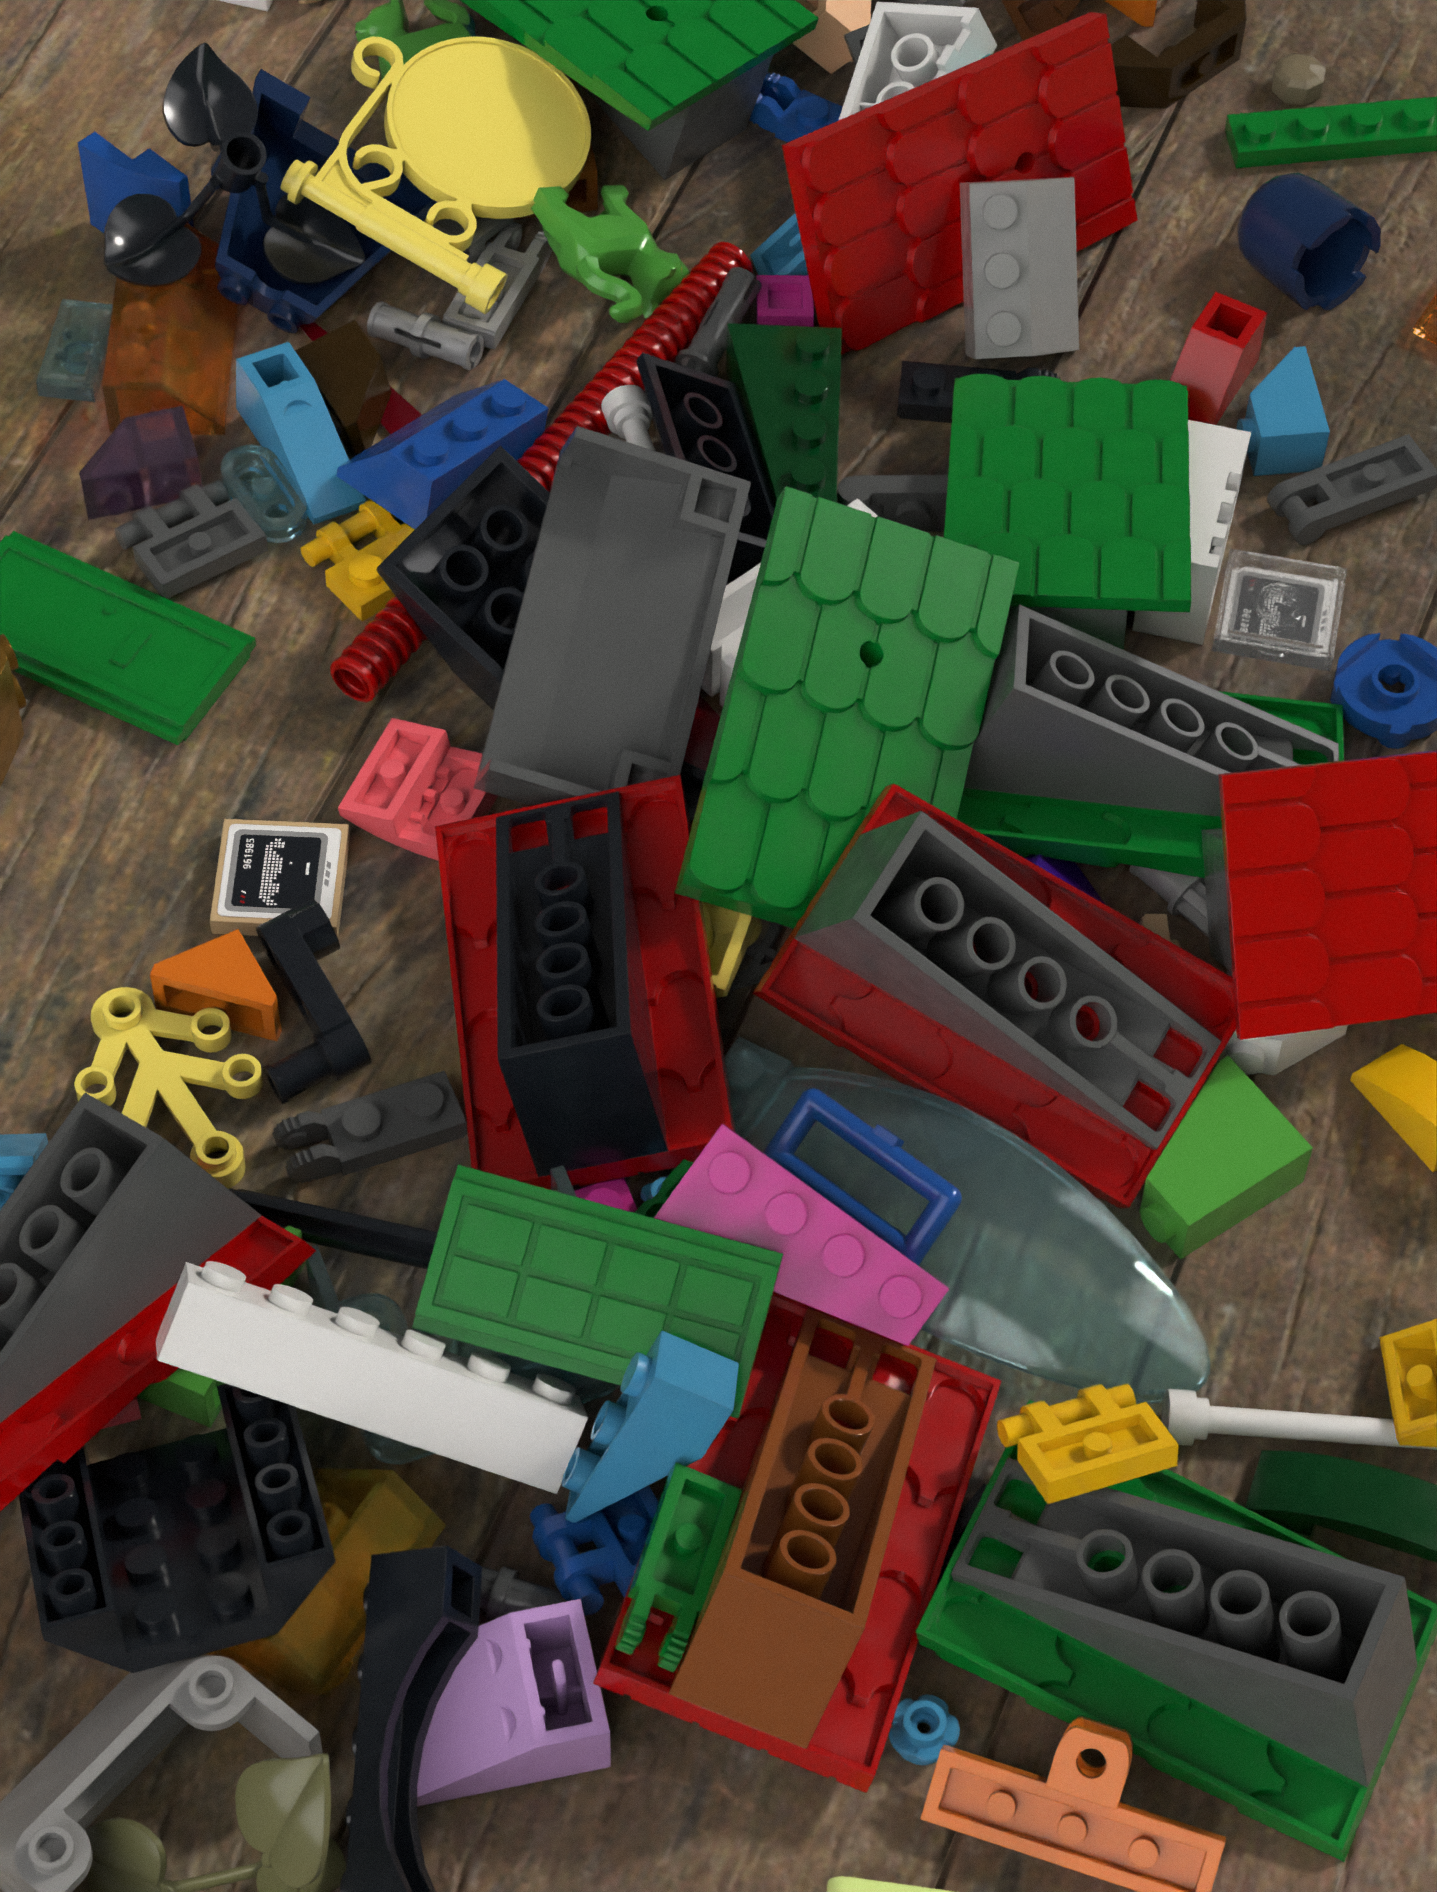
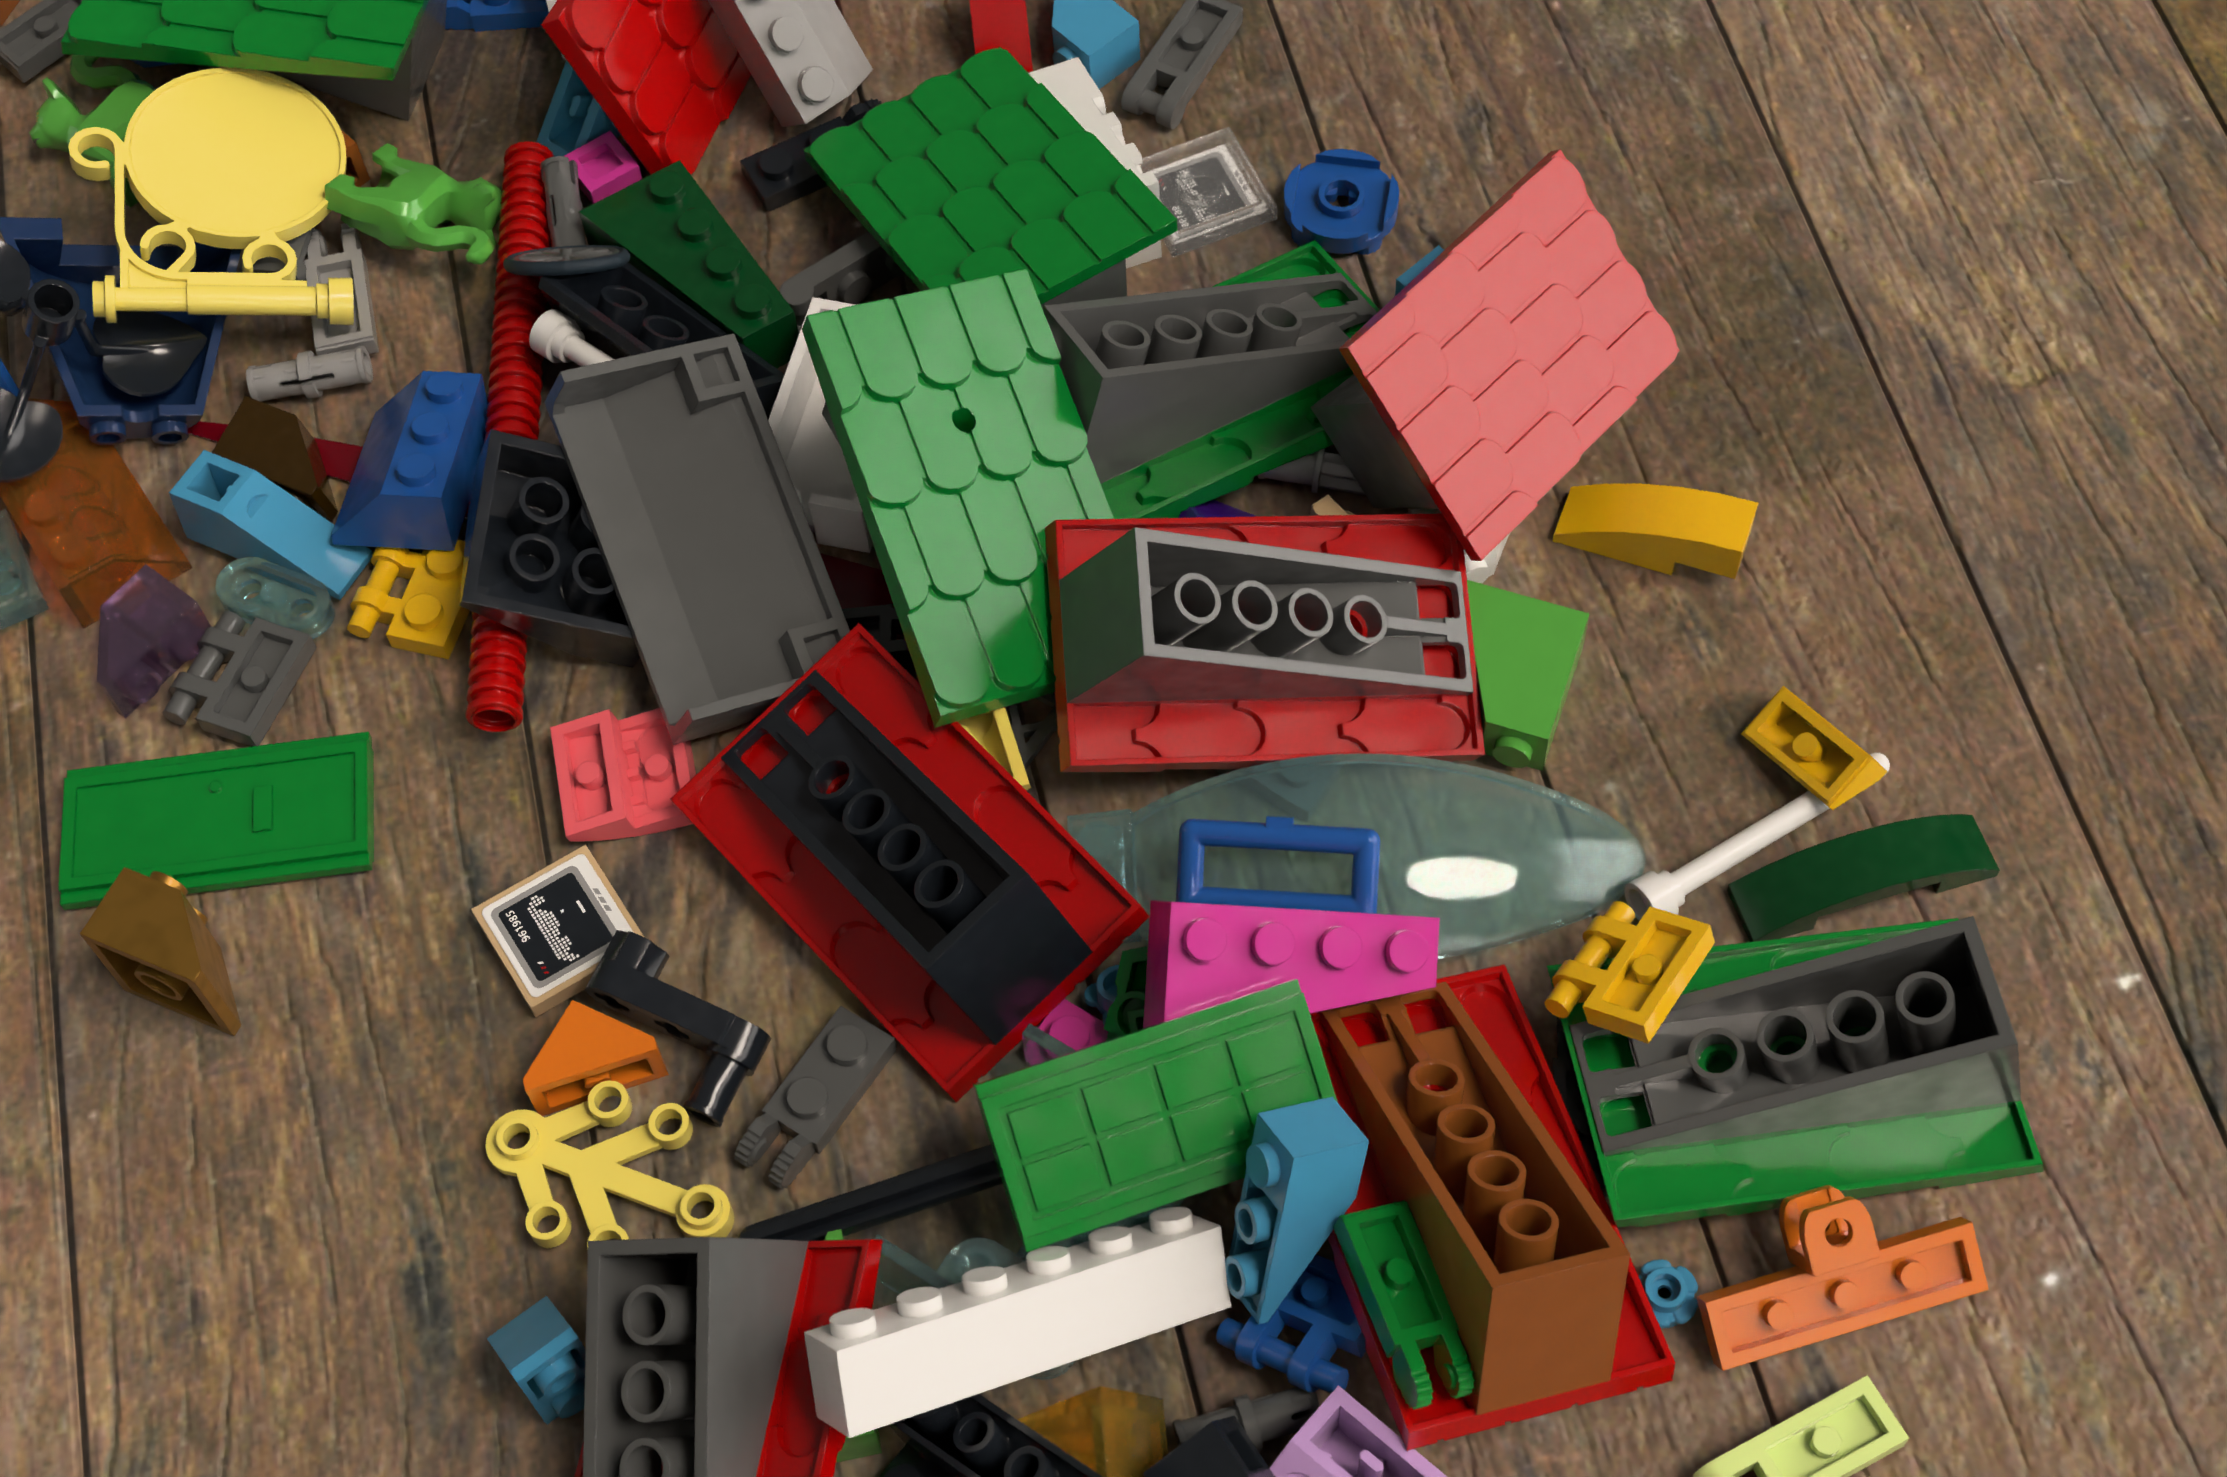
camera: 30 degrees left, 5 degrees up
(681, 354) = (566, 260): none -> black wheel

